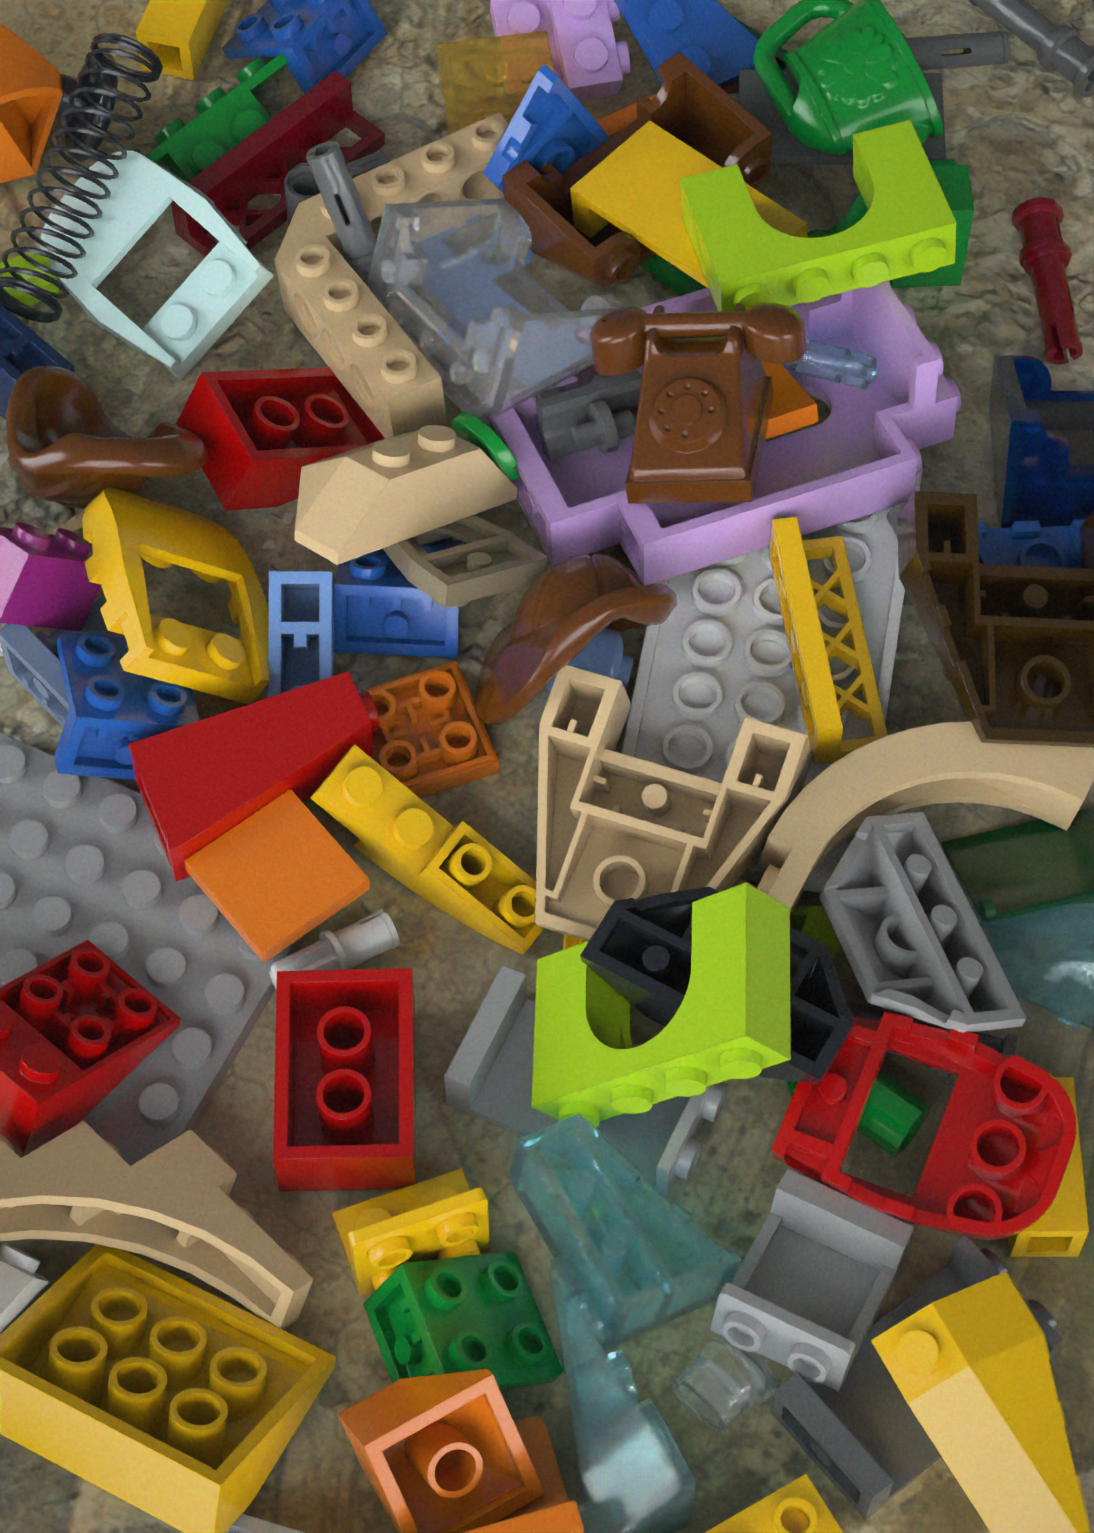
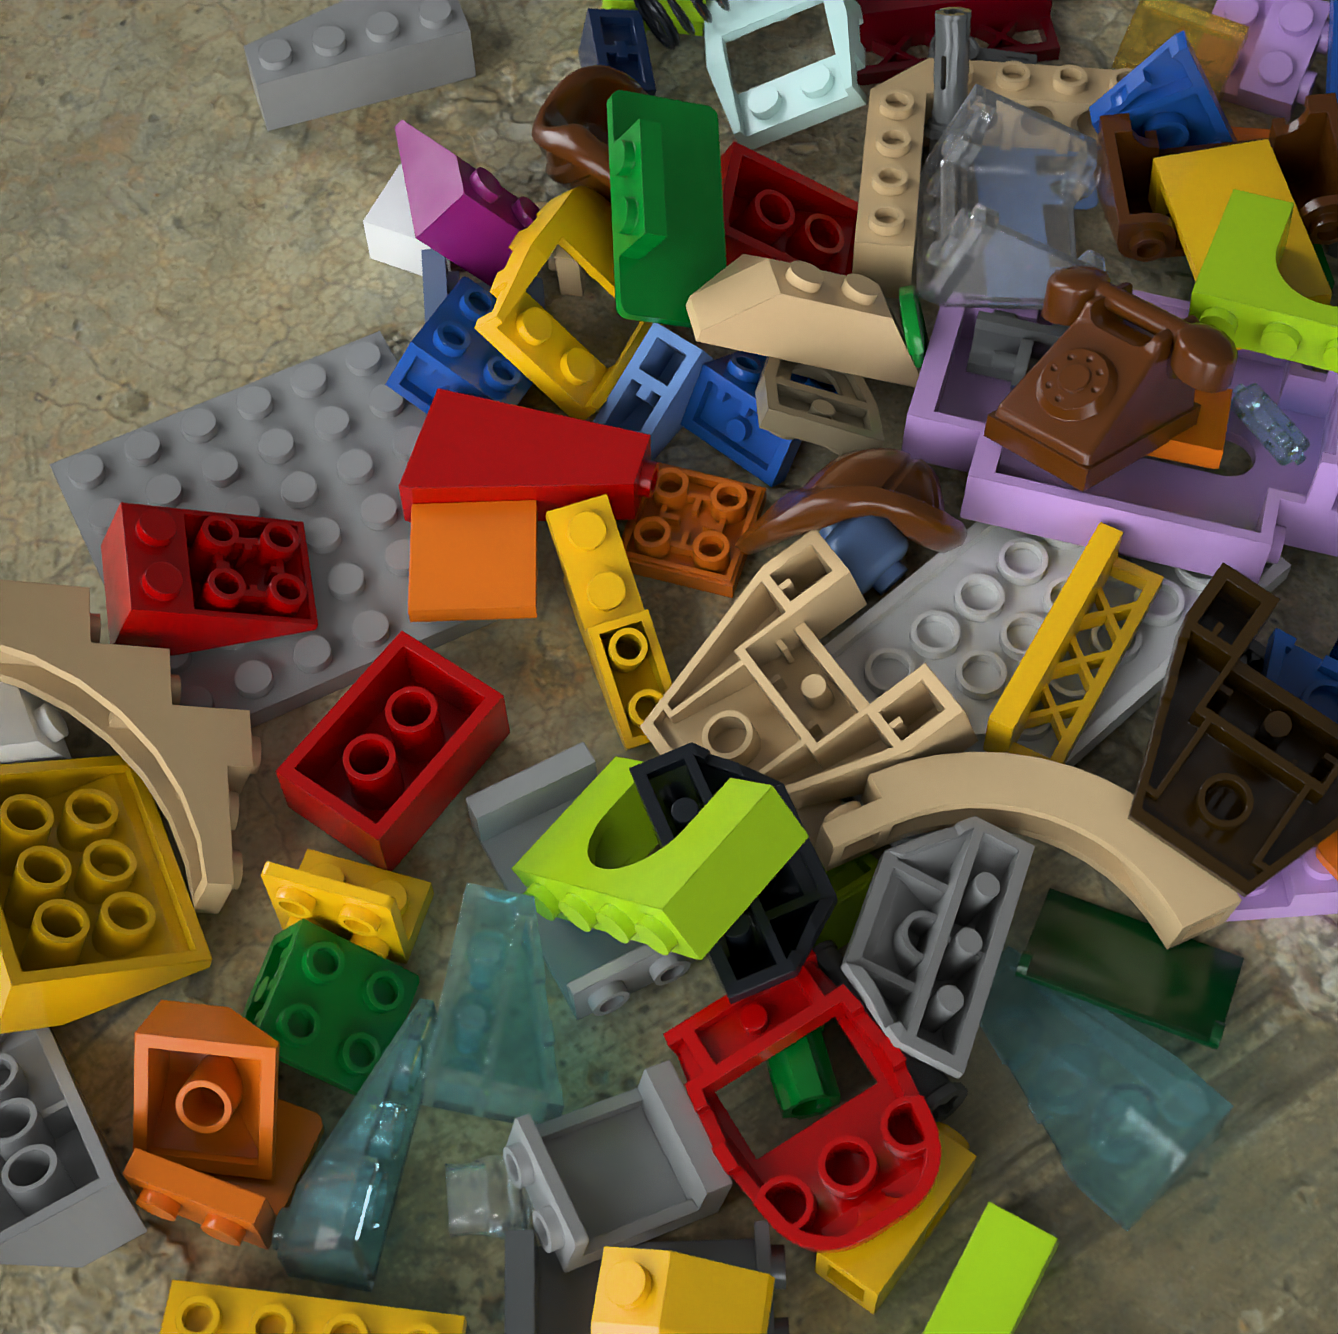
camera: 40 degrees right, 0 degrees up
(206, 464) = (663, 204): none -> green bracket
(344, 947) = (485, 653): white axle -> none

